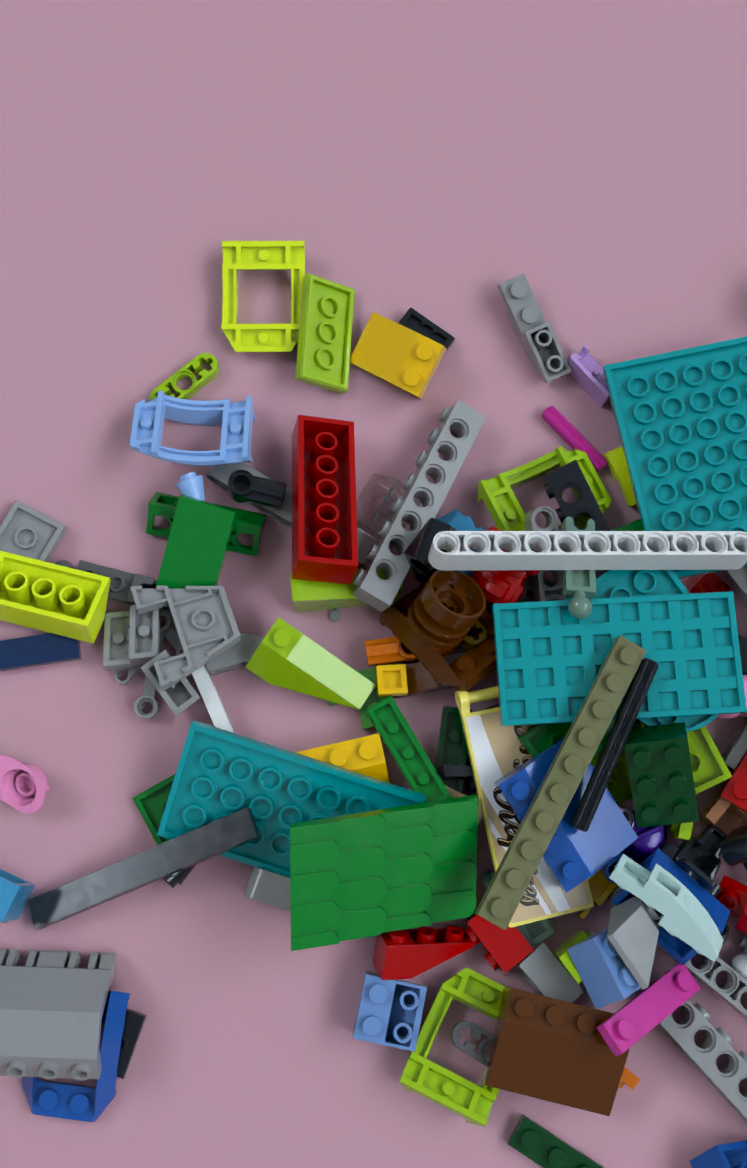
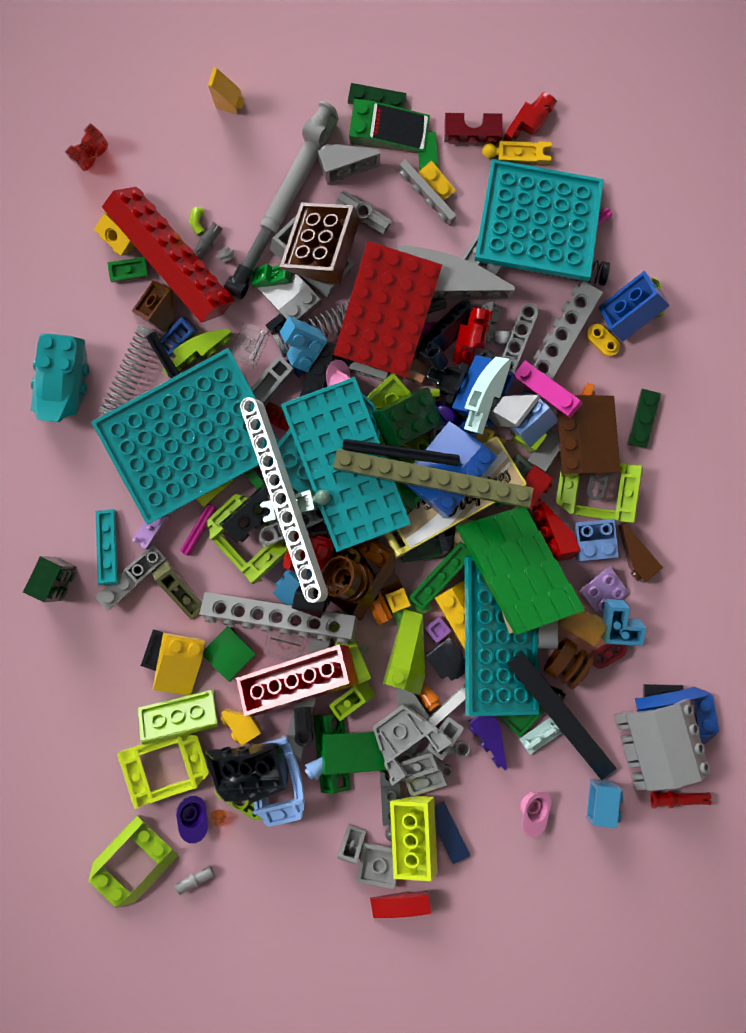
camera: 100 degrees left, 10 degrees up
(68, 509) = (351, 844): none -> light grey slope
(99, 293) = (194, 880): none -> light grey pin
(124, 827) = (540, 735): none -> light aqua hinge
(153, 754) = (490, 732): none -> dark purple slope
(166, 254) = (151, 844): none -> lime wedge
(175, 343) = (218, 821): none -> clear orange hinge
(181, 310) = (192, 819): none -> dark purple piece
(211, 973) = (608, 655): none -> dark red plate
(216, 906) = (572, 665): none -> reddish brown wheel
(219, 398) = (248, 771): none -> black slope
(236, 681) = (429, 698): none -> orange cone
(244, 1002) = (620, 628): none -> dark azure brick
(265, 947) = (584, 626): none -> clear yellow piece
(269, 572) = (352, 700): none -> lime slope
(281, 412) = (243, 727): none -> yellow slope
(282, 723) = (447, 660): none -> black piece
(306, 999) = (603, 587): none -> lavender hinge
(330, 726) = (437, 629): none -> medium lavender plate
(340, 1073) = (639, 558): none -> reddish brown slope
(389, 427) = (228, 654): none -> green slope
(501, 384) = (177, 589): none -> olive slope
(565, 221) = (50, 579): none -> dark green brick
(585, 310) = (106, 547): none -> teal tile
(697, 1125) = (601, 342): none -> yellow plate

